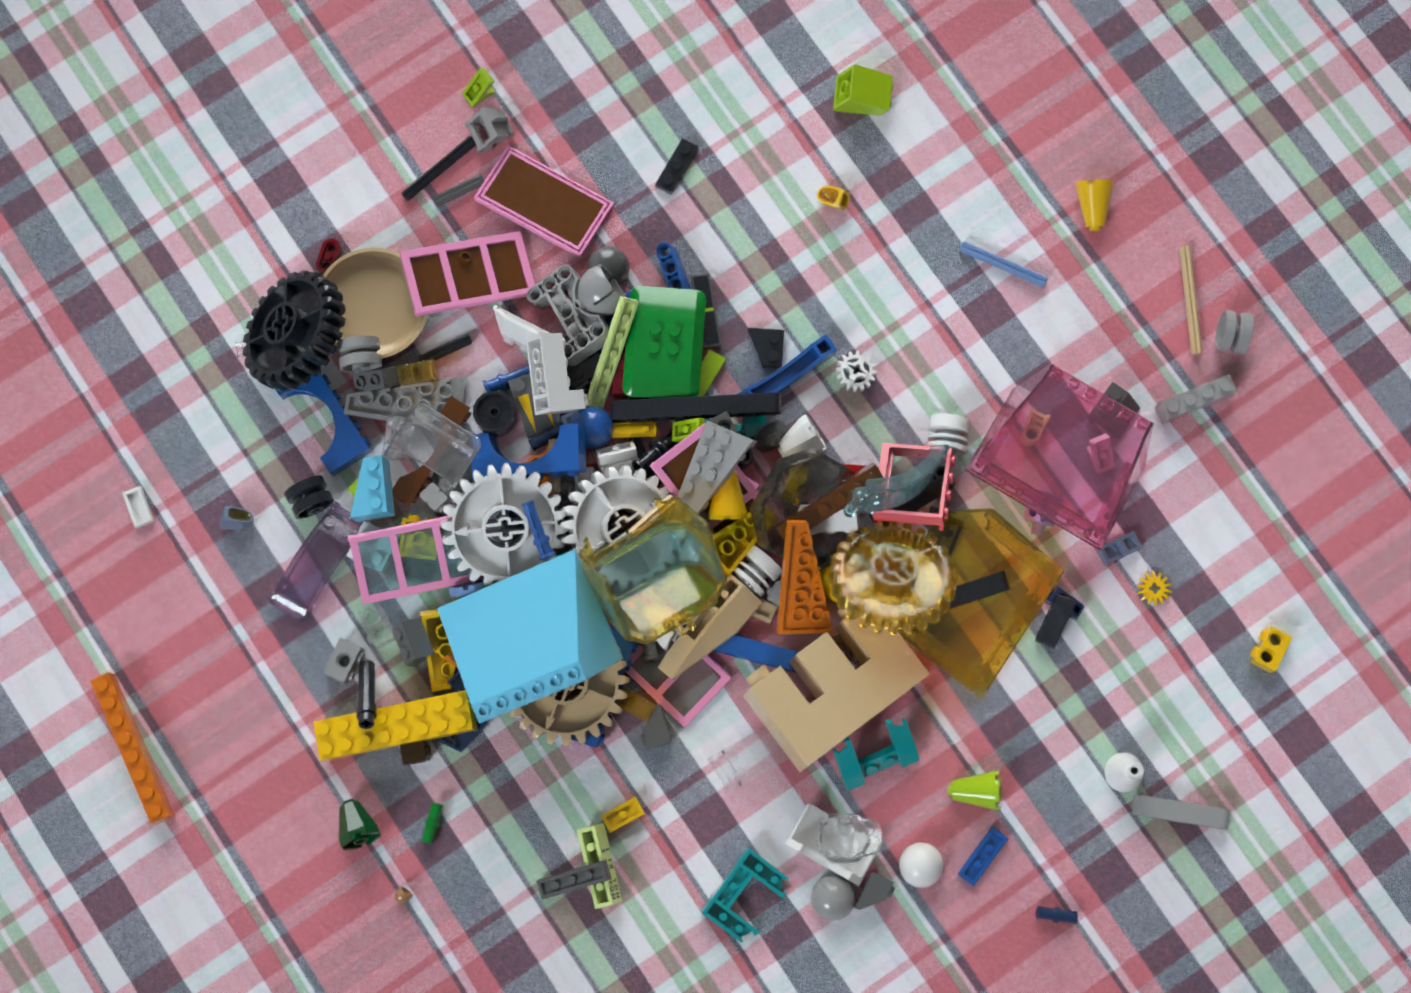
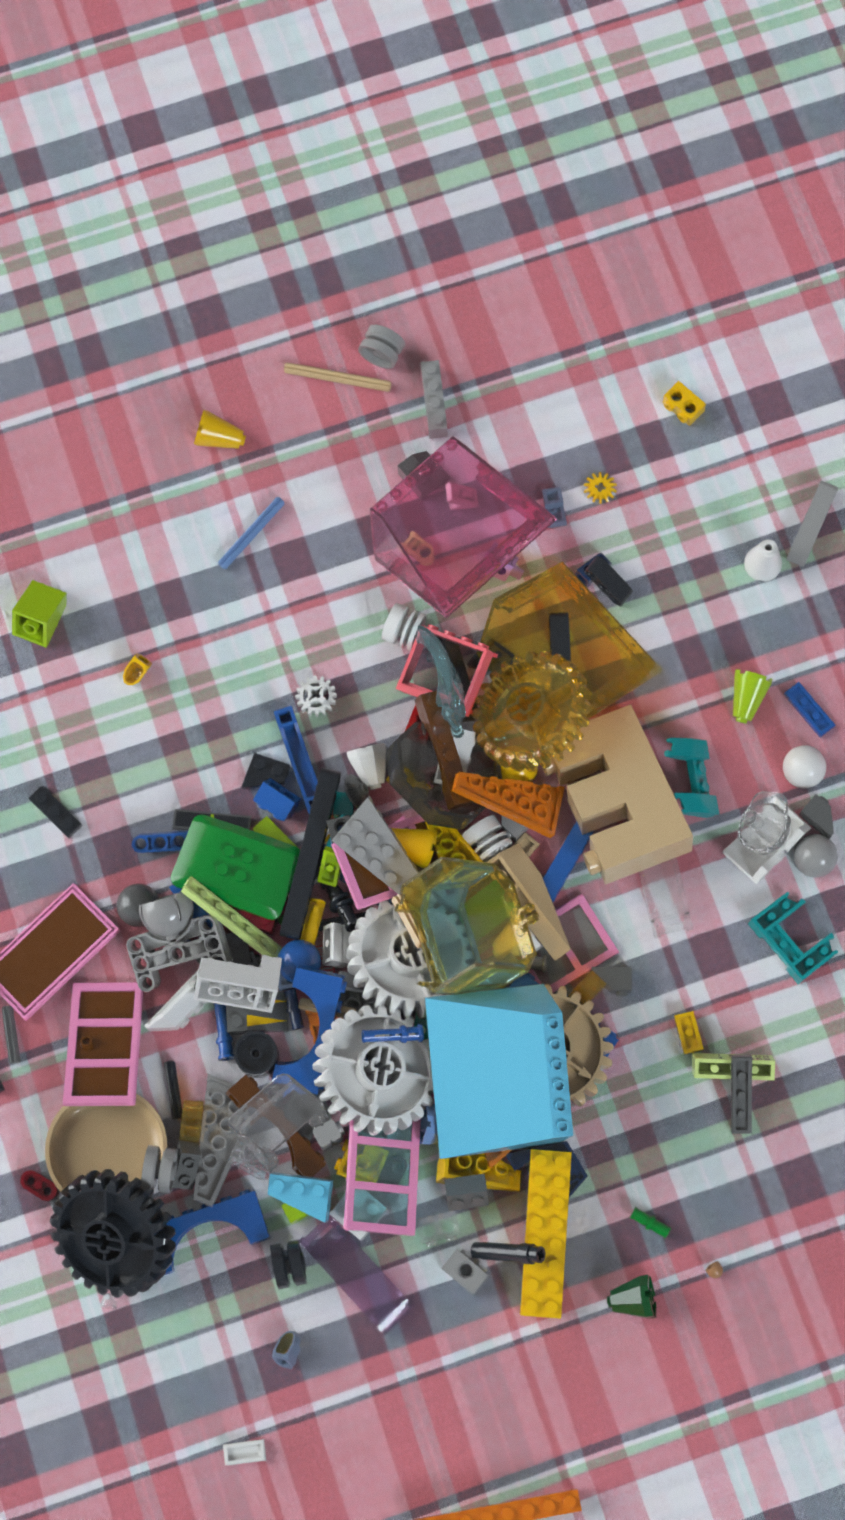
camera: 70 degrees left, 5 degrees down
(415, 753) = (577, 1221): dark brown brick -> none
(742, 363) = (276, 800): none -> blue brick

